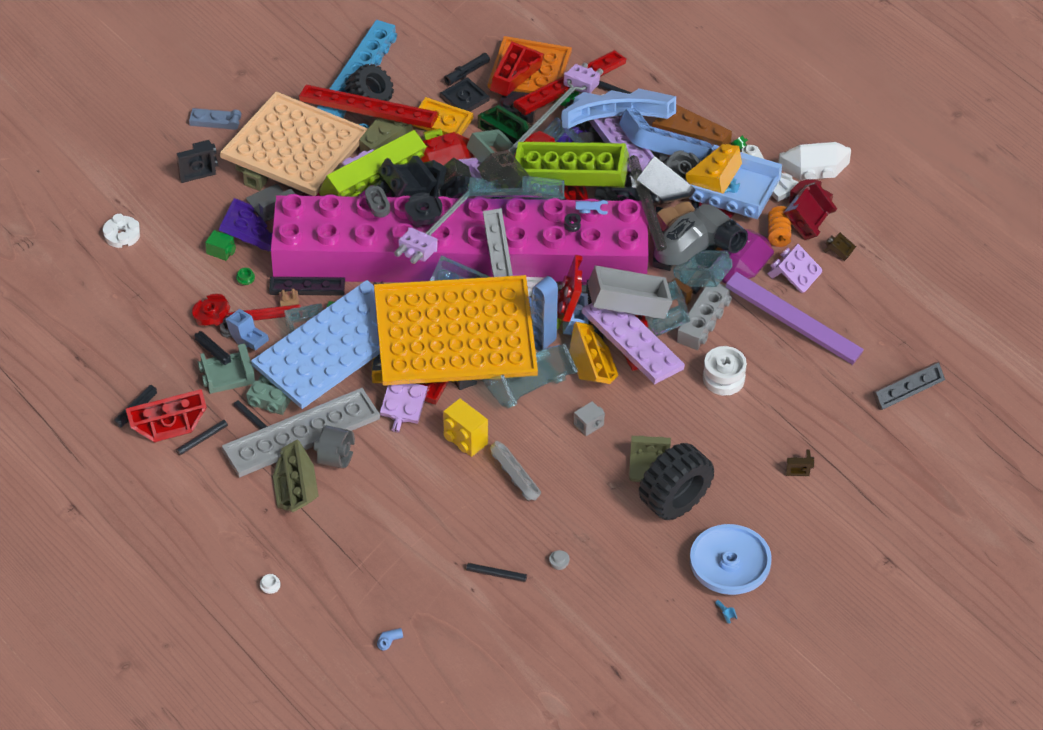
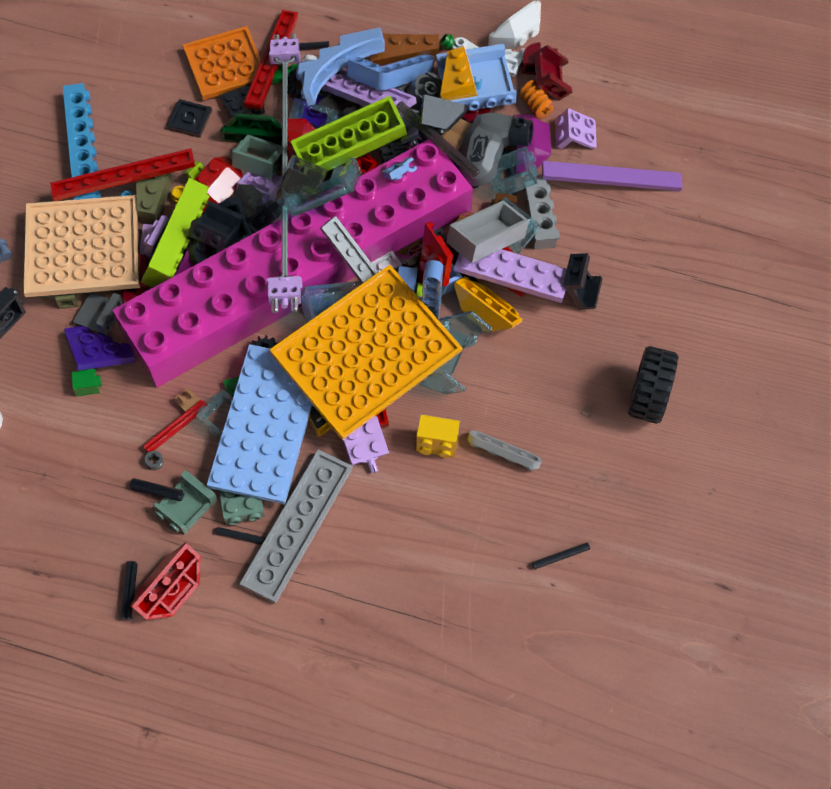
camera: 35 degrees left, 15 degrees up
(202, 437) = (212, 584): black bar -> none
(211, 310) = (134, 459): red plate -> none
(243, 330) = (174, 457): medium blue brick -> none
(245, 276) = (131, 400): green plate -> none
(270, 584) = (384, 694): white plate -> none
(294, 478) = (331, 579): olive wedge -> none
(308, 285) = (192, 376): black tile -> none
(334, 446) = (341, 524): dark grey brick -> none
(374, 78) = (106, 151): black tyre -> none
(377, 201) = (215, 268): dark grey plate -> none
(387, 638) = (522, 681): medium blue arm -> none
(423, 217) = (263, 261): black plate -> none
(449, 117) = (200, 142): light orange plate -> none
(462, 71) = (170, 97): black pin -> none
(515, 68) = (219, 70): red wedge -> none
(559, 559) = (602, 511): light grey plate -> none
(572, 217) = (394, 198): black bush -> none
(589, 418) = (525, 363): light grey brick -> none
(644, 452) = (602, 373): olive bracket -> none
(687, 380) = (580, 284): none -> black panel
(724, 370) = (602, 252): white wheel -> none
(727, 612) = (767, 474): dark azure hand -> none
(730, 559) = (736, 426): light blue dish -> none
(800, 466) = (718, 305): dark brown bracket -> none
(840, 245) = (593, 90): dark brown bracket -> none
(908, 385) = (739, 186): plate -> none

